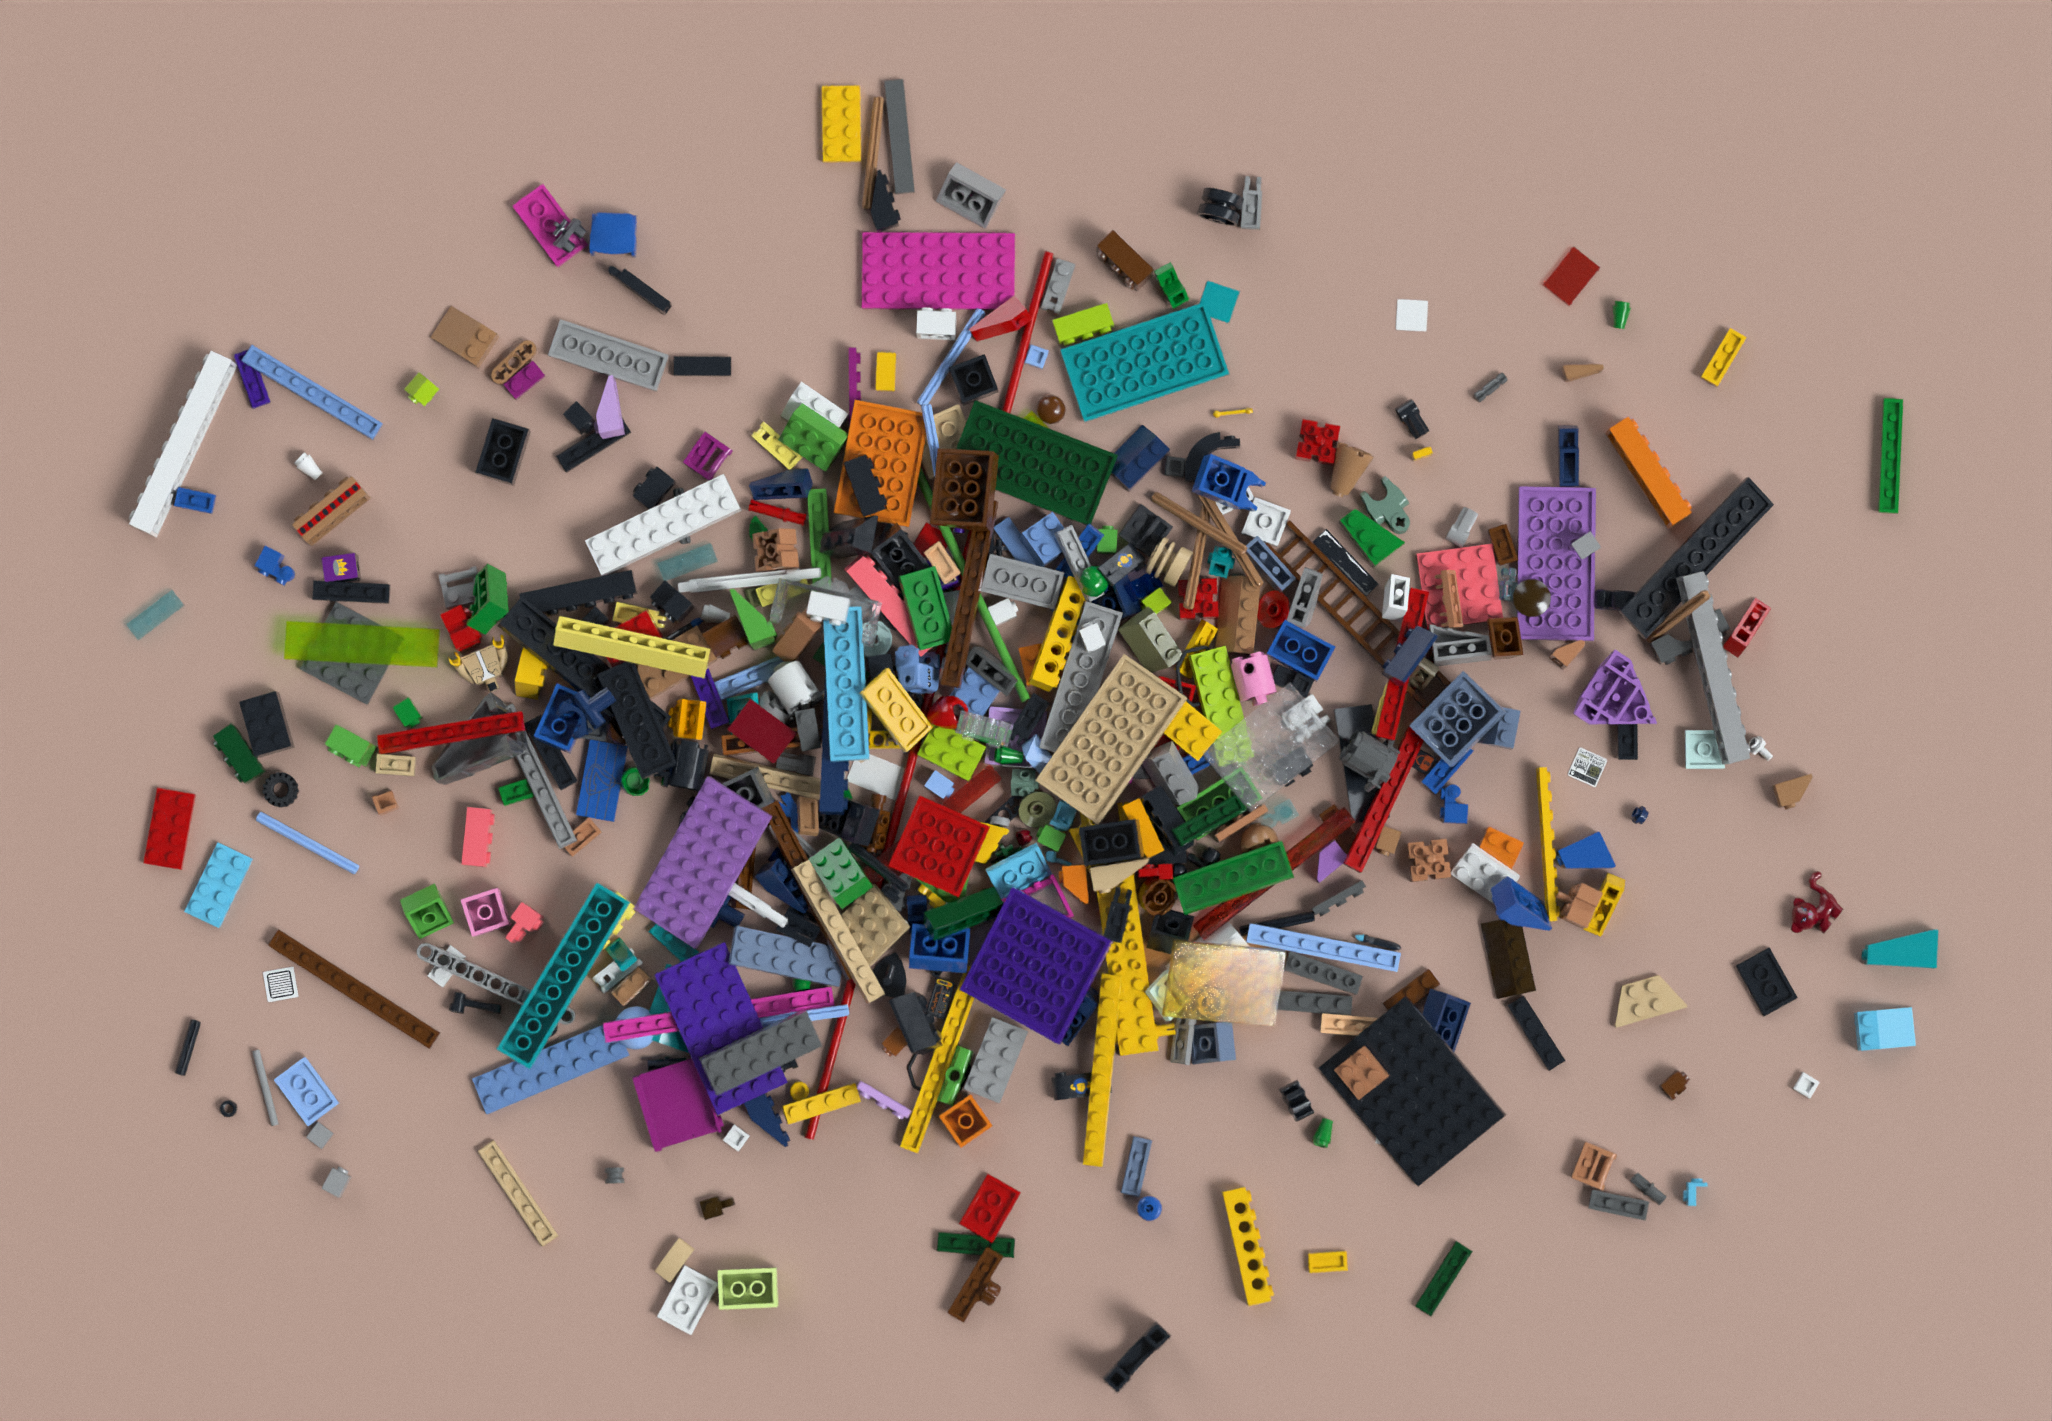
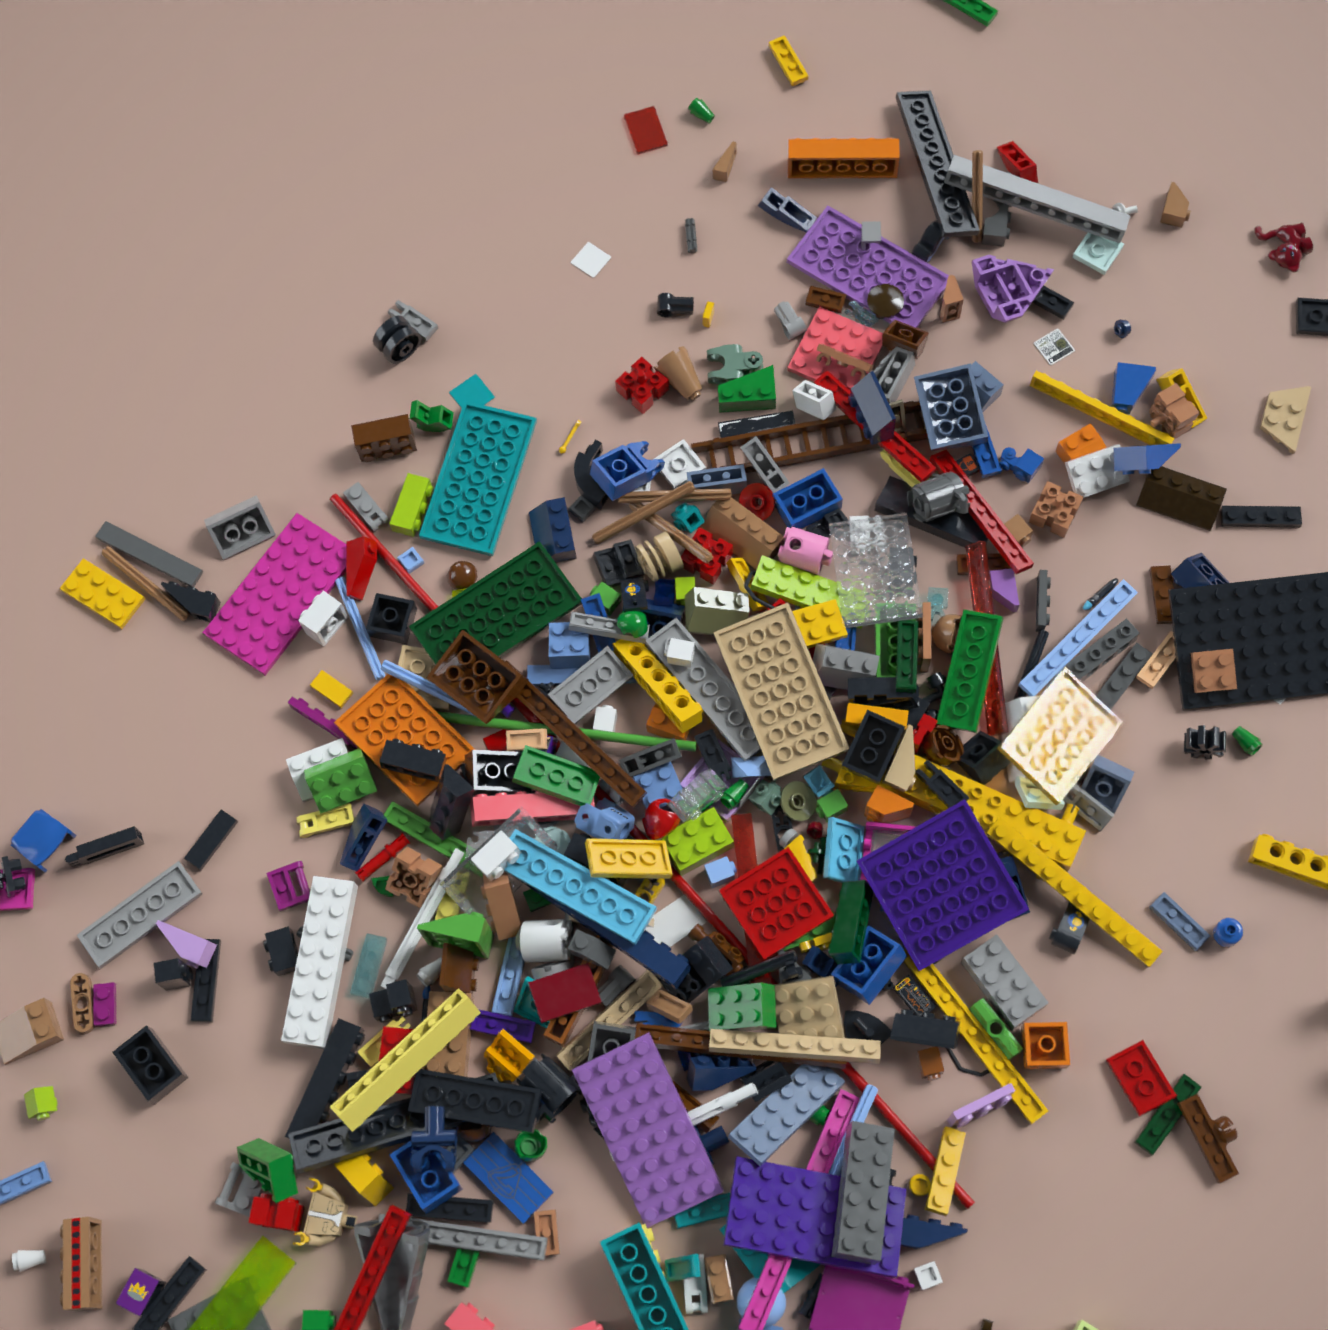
camera: 55 degrees left, 15 degrees down
(1051, 857) = (848, 816): medium azure hand -> none

